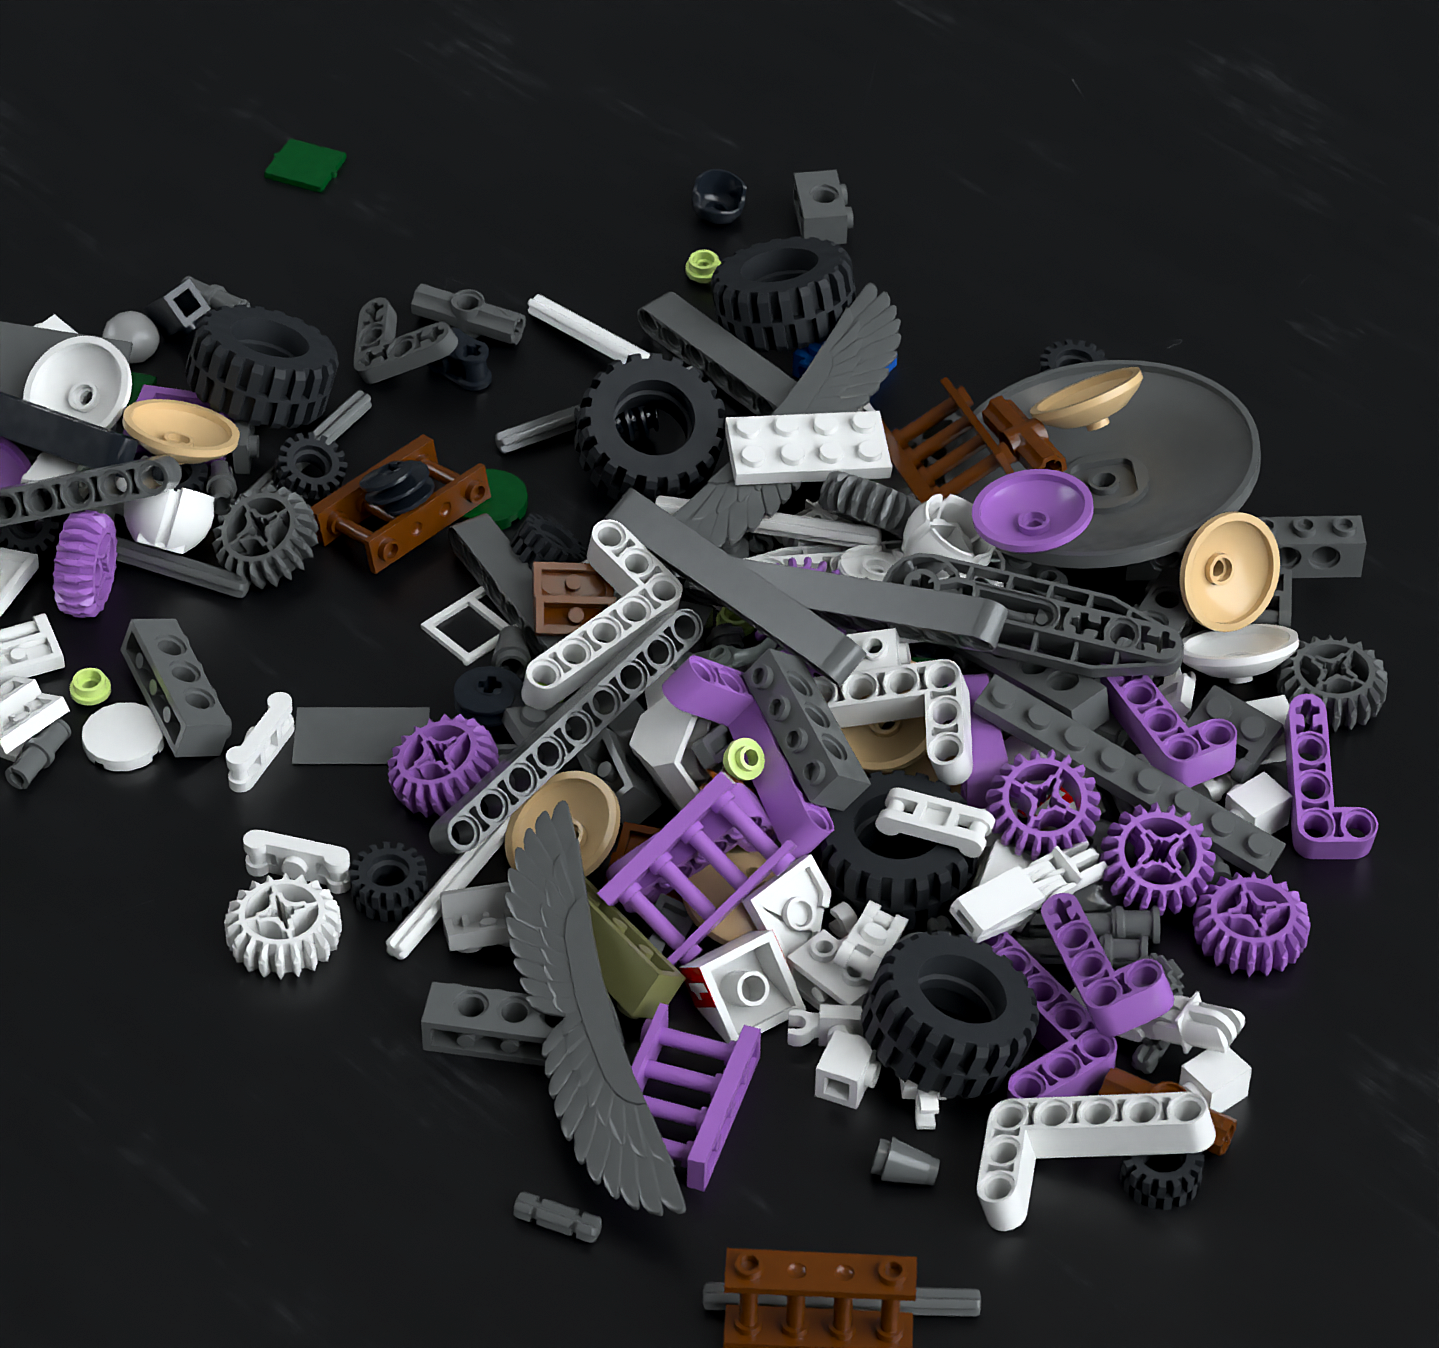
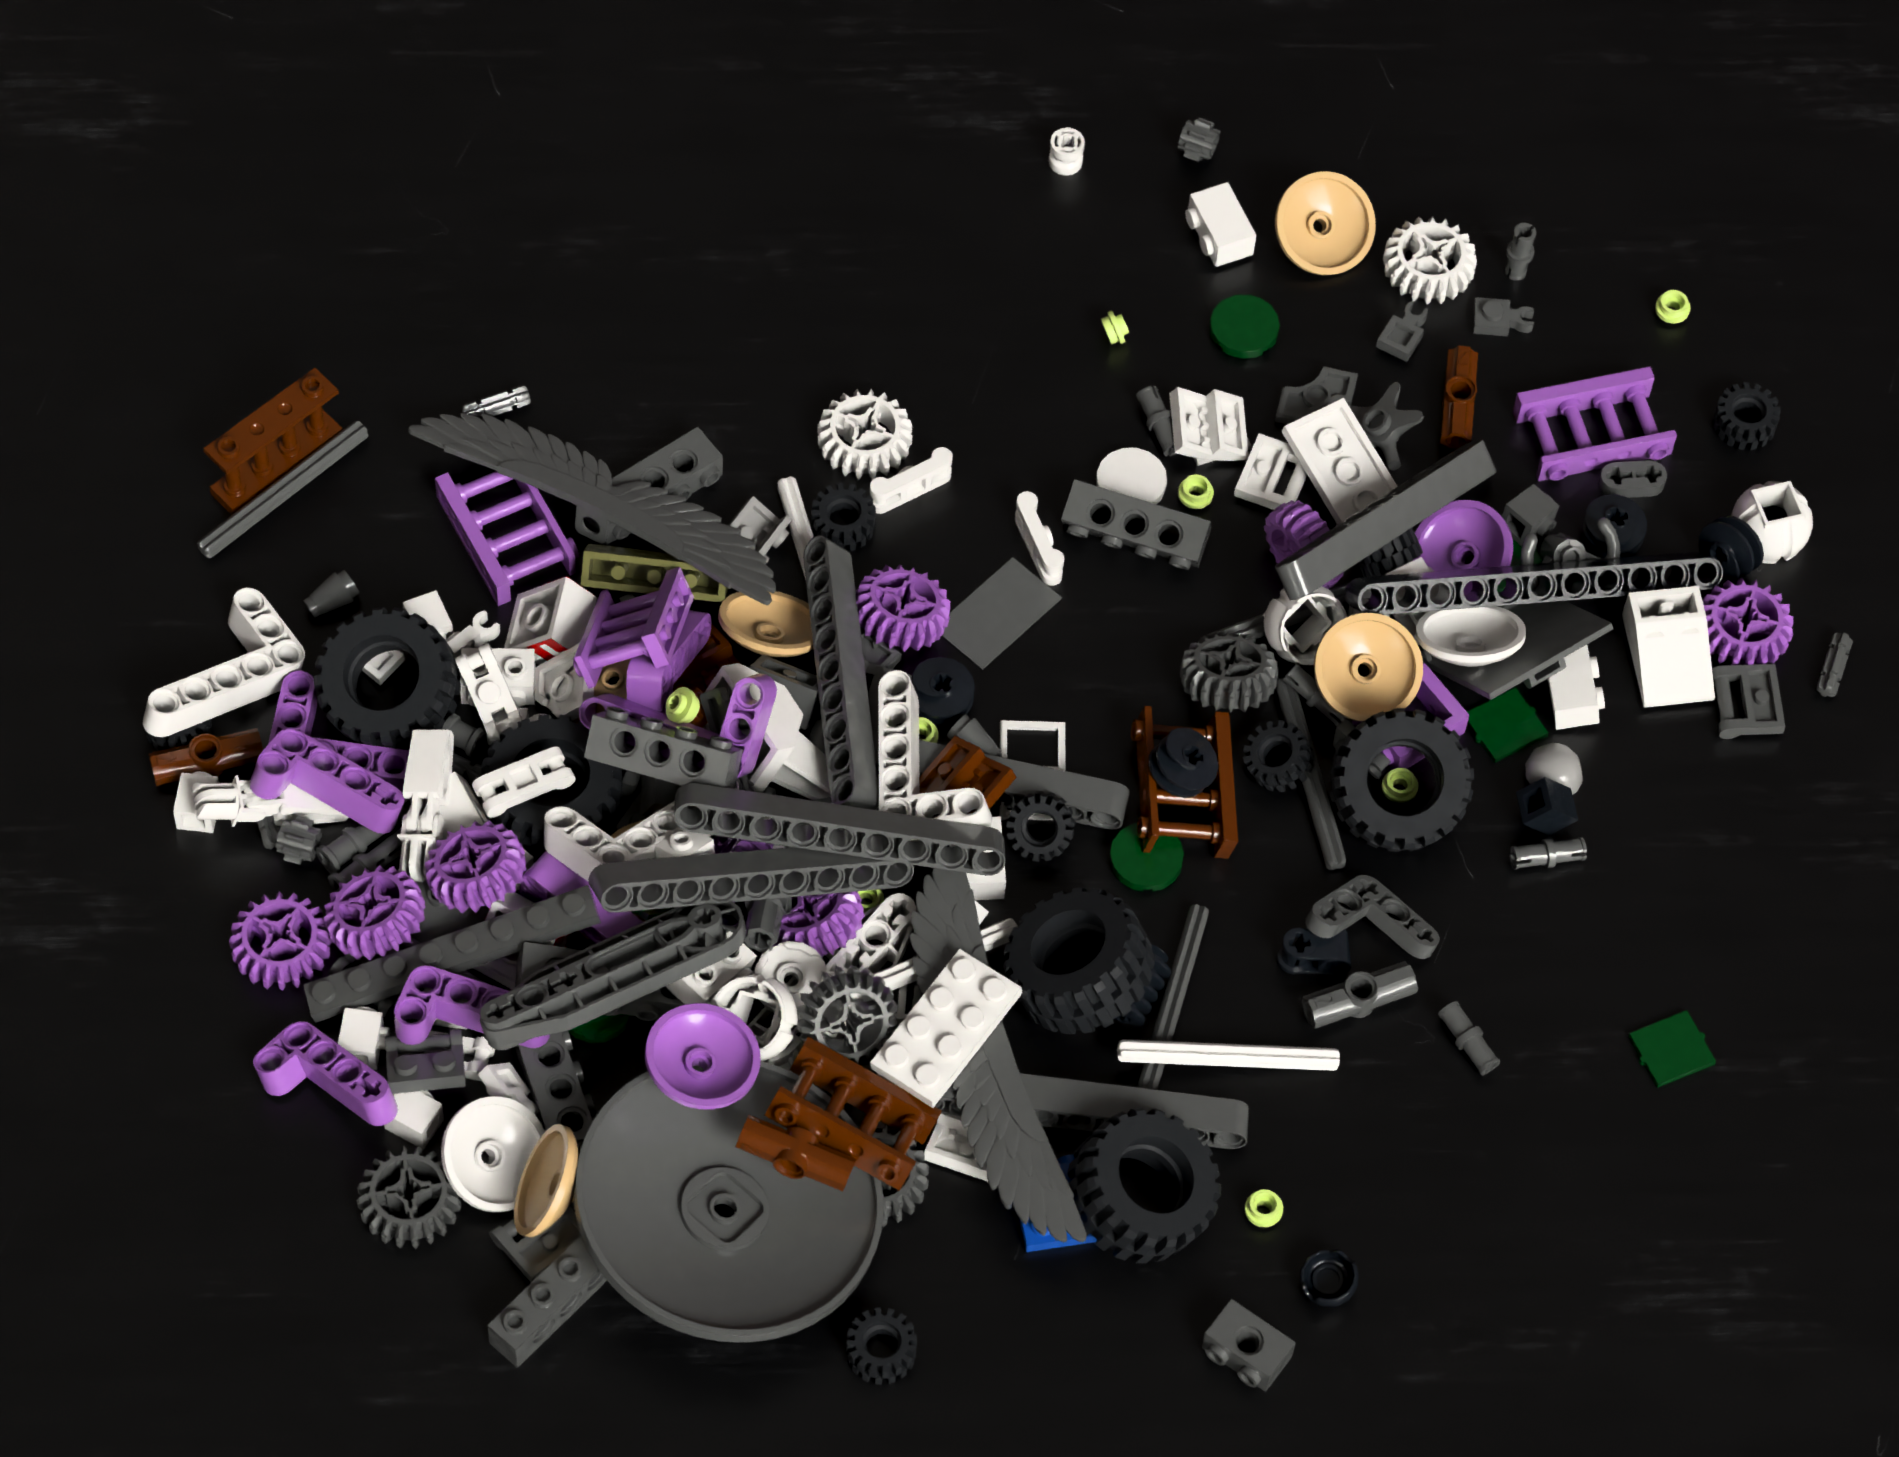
camera: 130 degrees right, 15 degrees up
(430, 249) = (1469, 1038): none -> dark grey pin
(1089, 401) = (780, 1209): tan dish -> none

